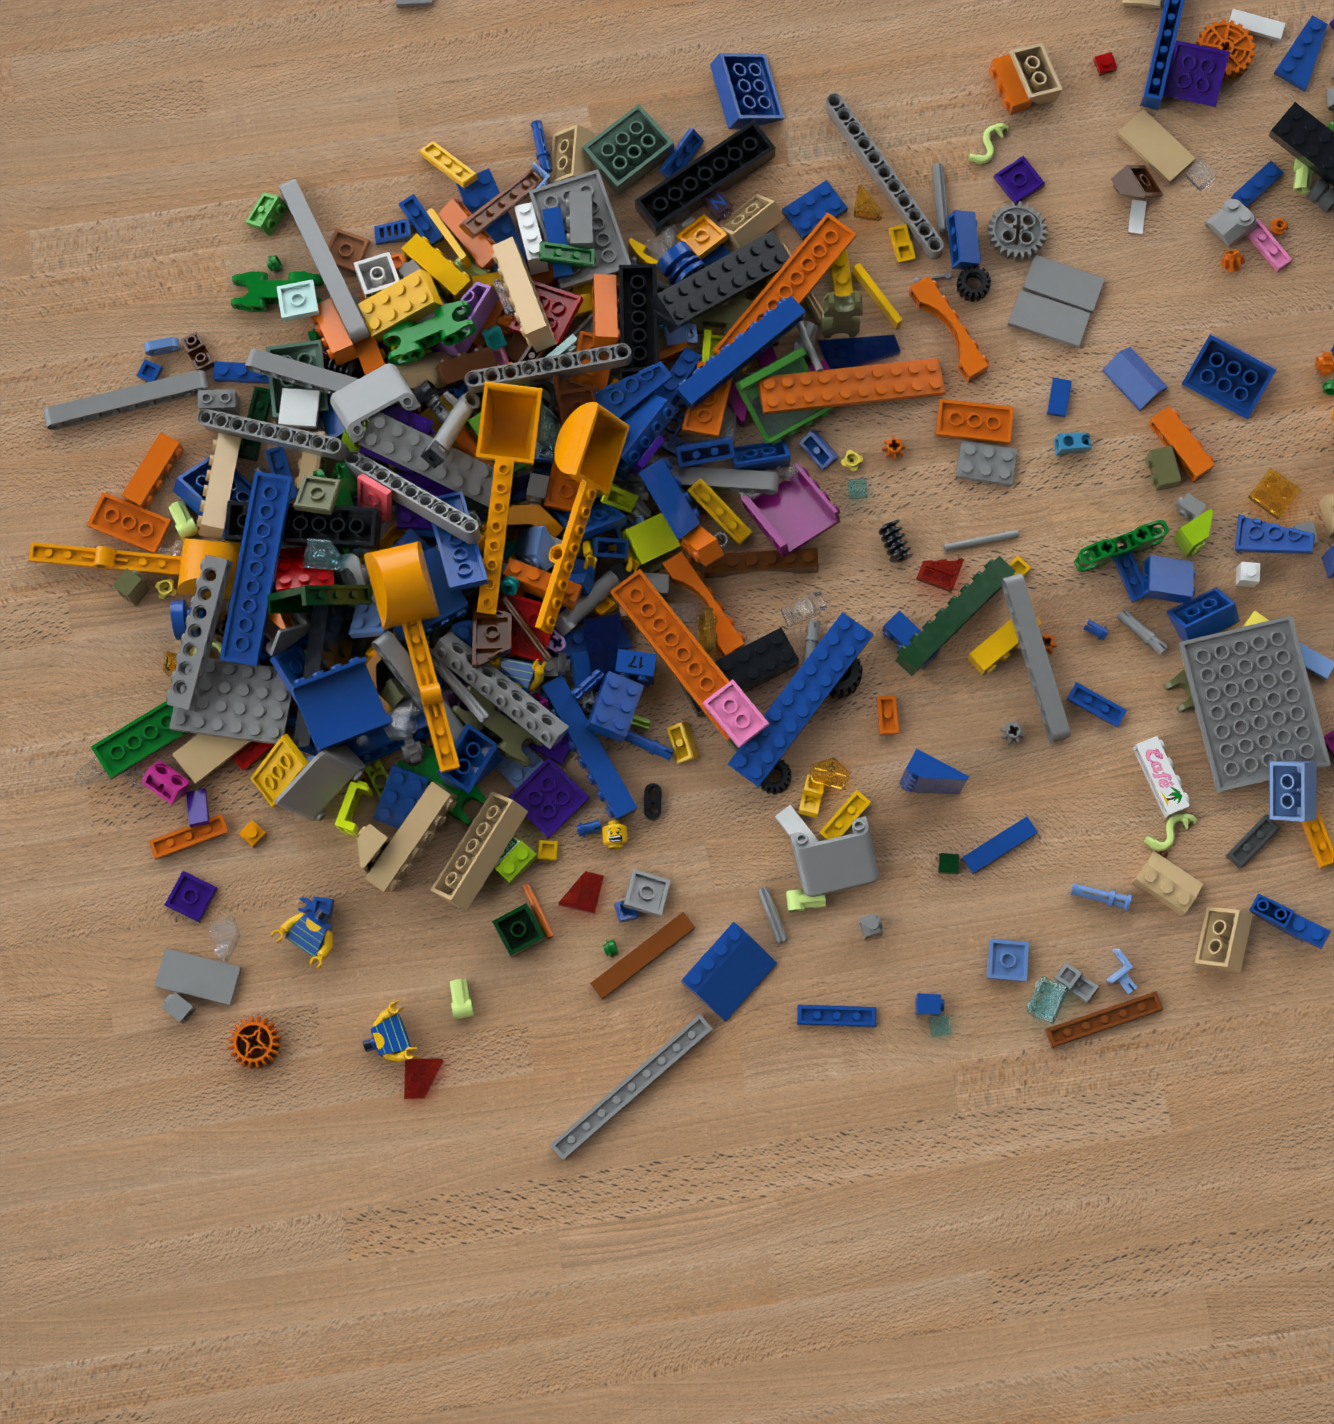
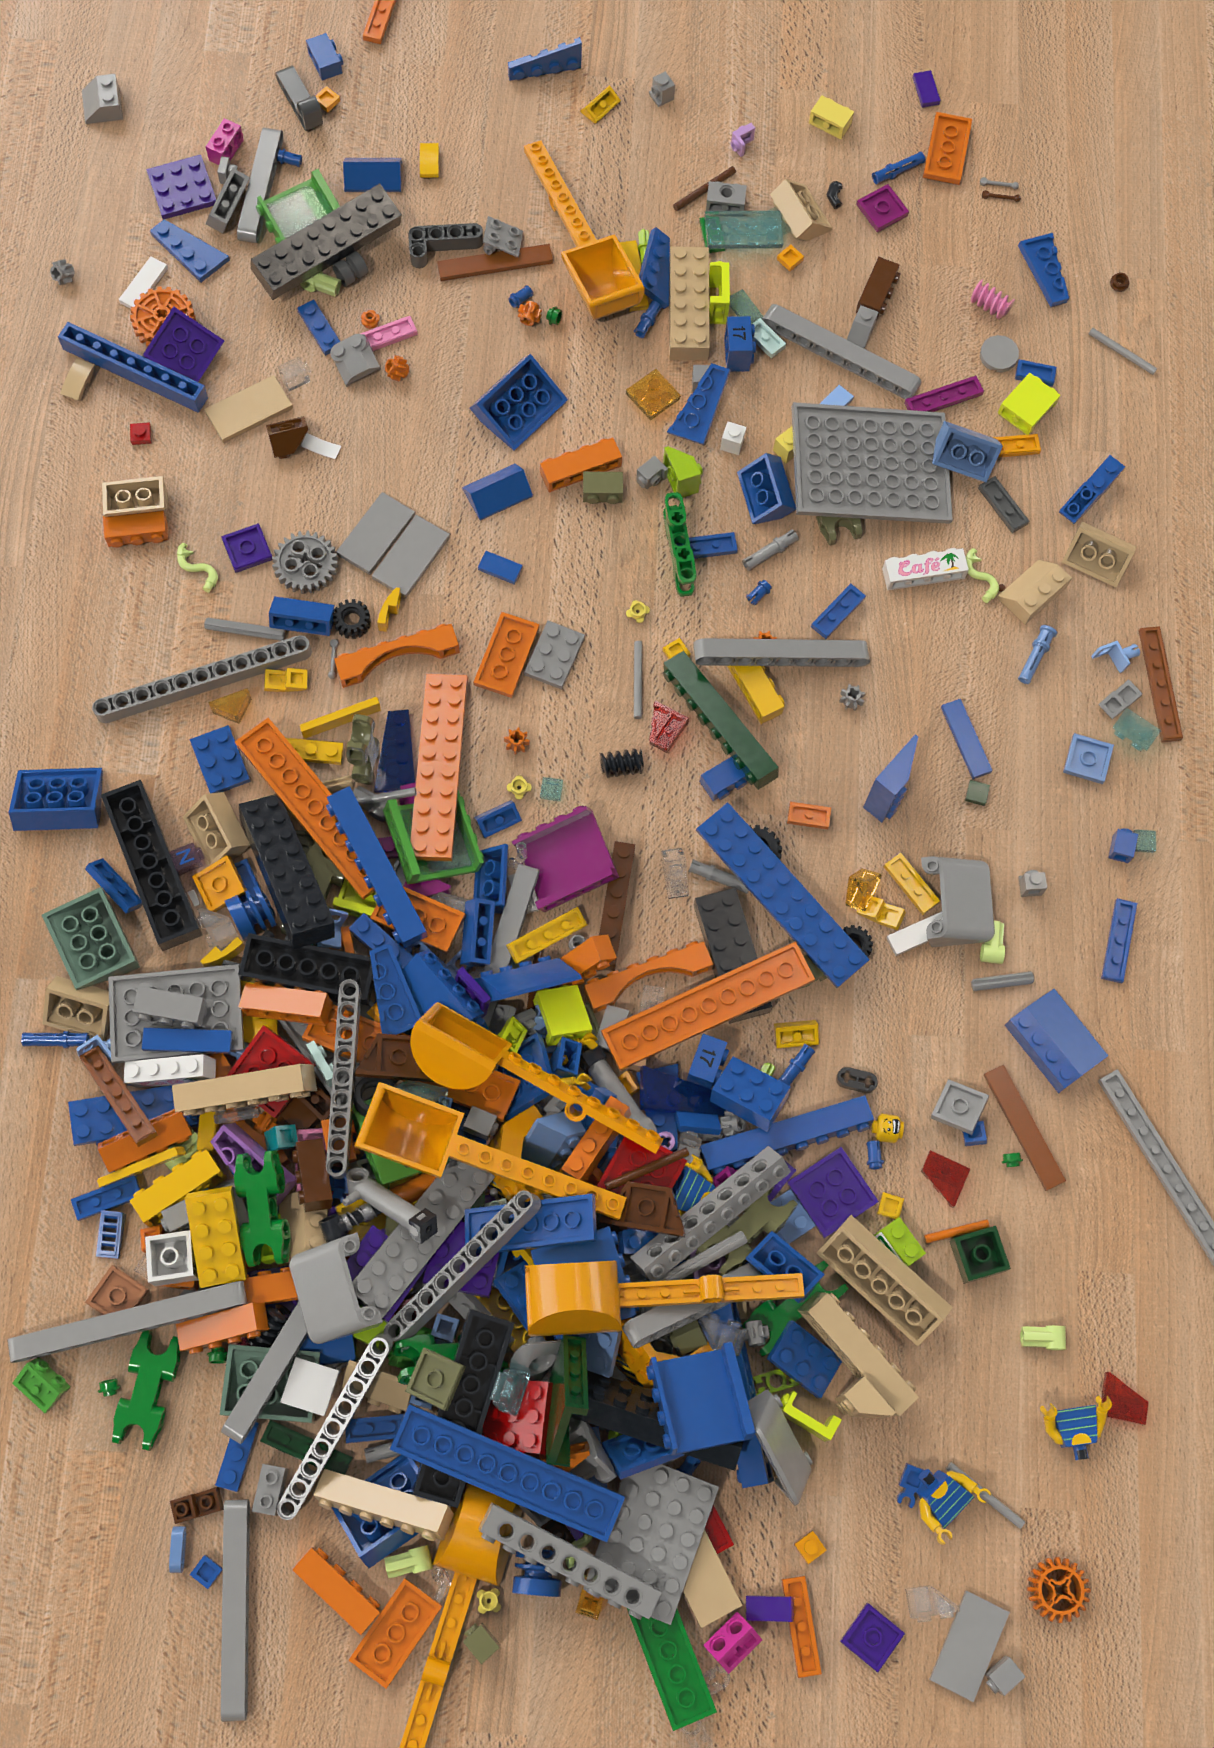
camera: 85 degrees left, 5 degrees down
(279, 769) = (751, 1495): yellow tile -> none
(297, 300) = (171, 1363): light aqua plate -> none
(319, 973) = (991, 1500): none -> light grey bar
(374, 495) = (449, 1313): coral plate -> none
(448, 164) = (48, 1149): yellow tile -> none
(506, 589) = (594, 1175): teal bush -> none
(566, 254) = (207, 1031): green tile -> none
(587, 684) = (717, 1118): blue axle -> none
(707, 634) = (681, 977): clear yellow plate -> none
(736, 713) = (789, 962): bright pink tile -> none
(996, 312) = (390, 606): none -> yellow slope
(1053, 523) = (637, 605): none -> light yellow plate
(1072, 443) = (554, 567): dark azure leg -> none
(1168, 579) = (723, 510): blue brick -> none

